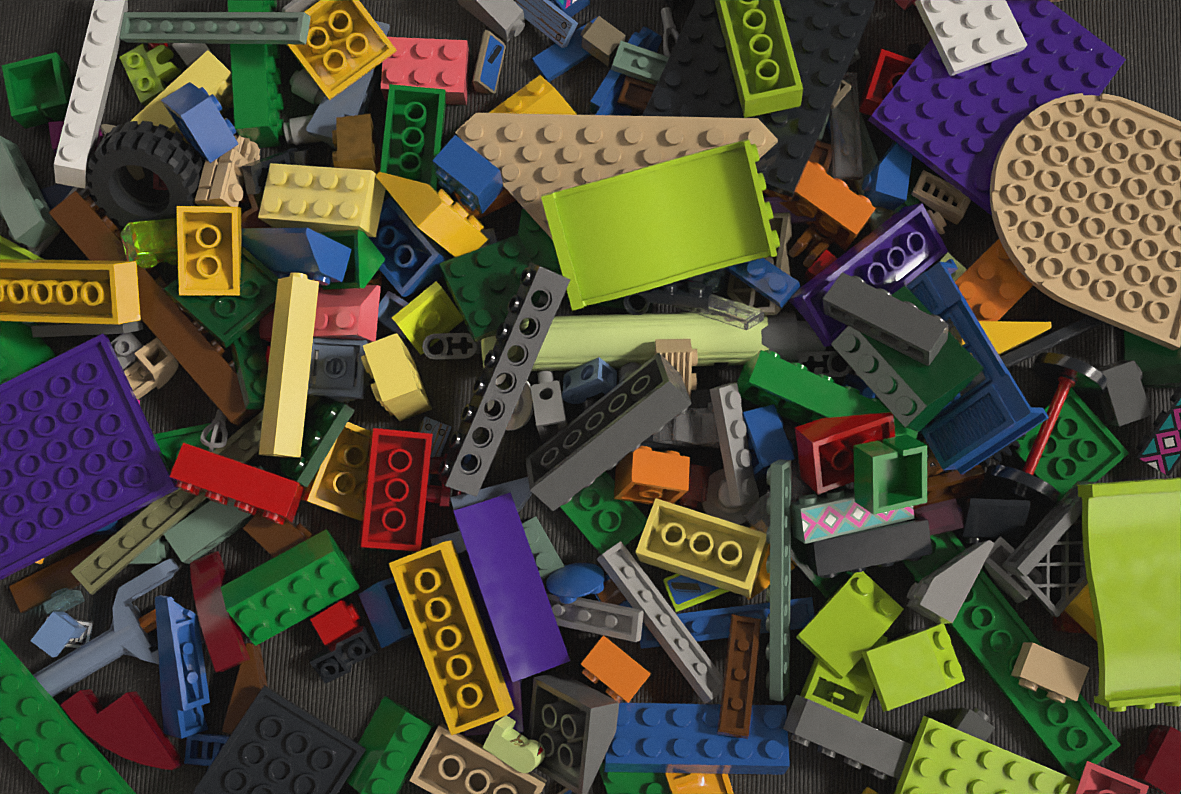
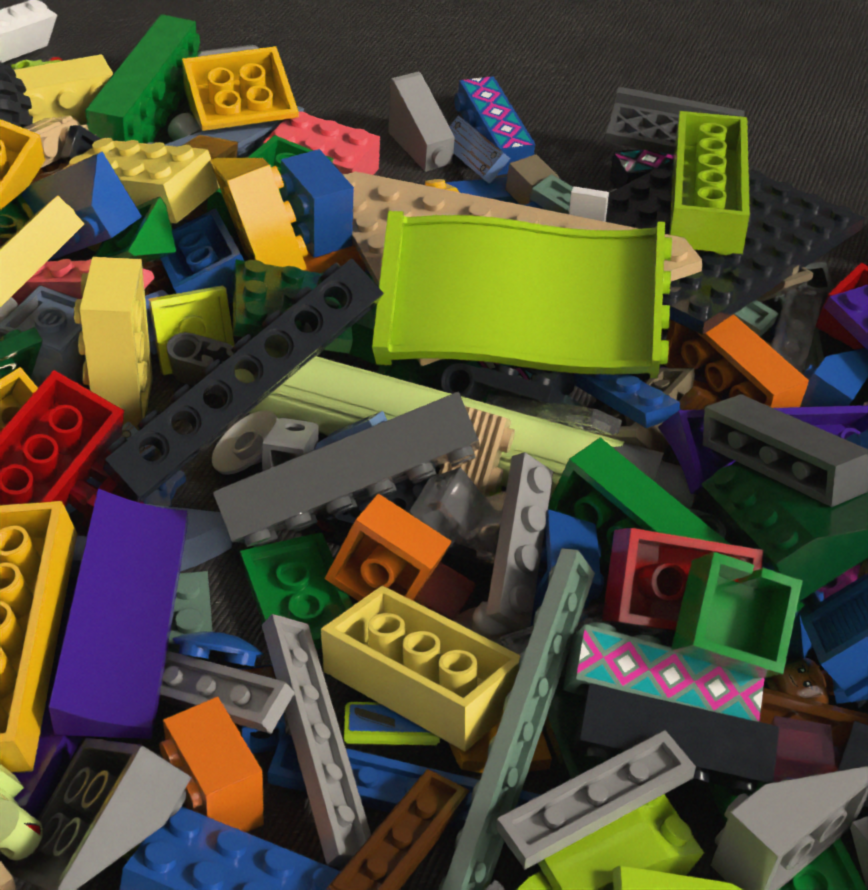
camera: 15 degrees right, 35 degrees down
(201, 121) = (53, 81): brick -> none
(215, 27) = (123, 38): sand green plate -> none
(488, 63) = (398, 163): slope -> none
(672, 98) = (589, 203): none -> white tile
(840, 614) = (594, 799): none -> light grey plate

